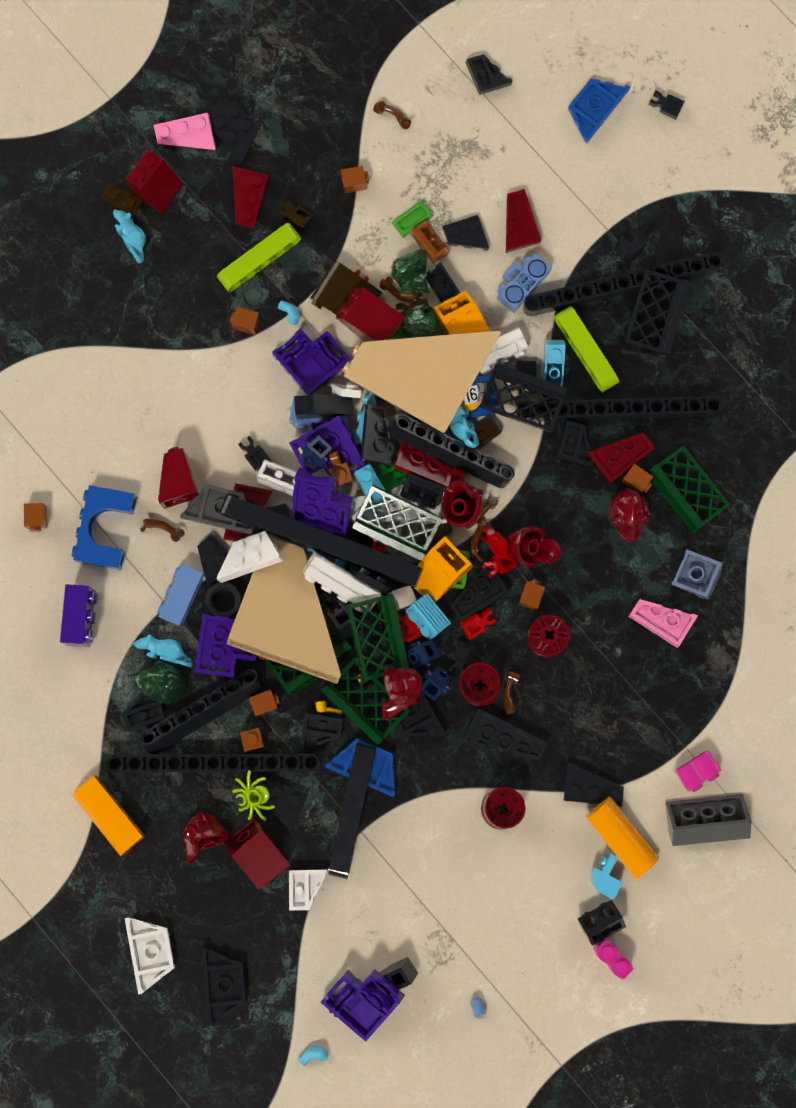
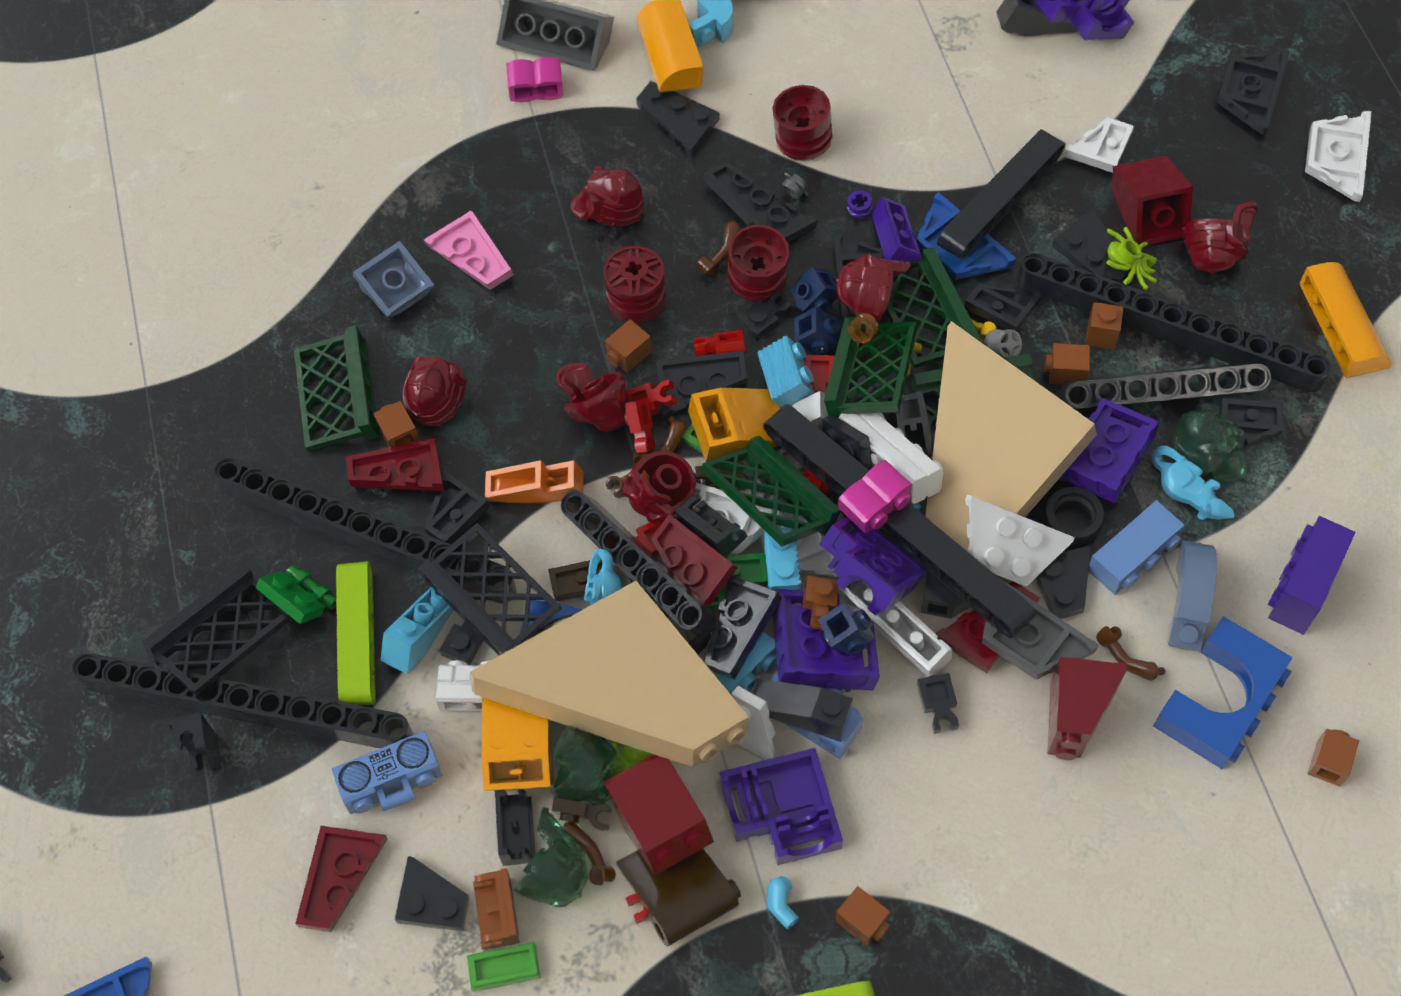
camera: 150 degrees left, 20 degrees down
(139, 580) = (1195, 594): none -> sand blue arch
(308, 698) = (1010, 345): none -> light grey wheel
(333, 537) = (875, 496): none -> dark pink brick
(393, 659) = (855, 325): none -> clear orange bush
(407, 753) = (895, 231): none -> dark purple slope
(434, 769) = (865, 198): none -> dark purple bush
(487, 762) = (794, 186): none -> dark grey plate
(538, 481) = (533, 482): none -> orange slope
(597, 696) = (610, 198): none -> dark red head
(630, 348) = (289, 594): none -> green plate

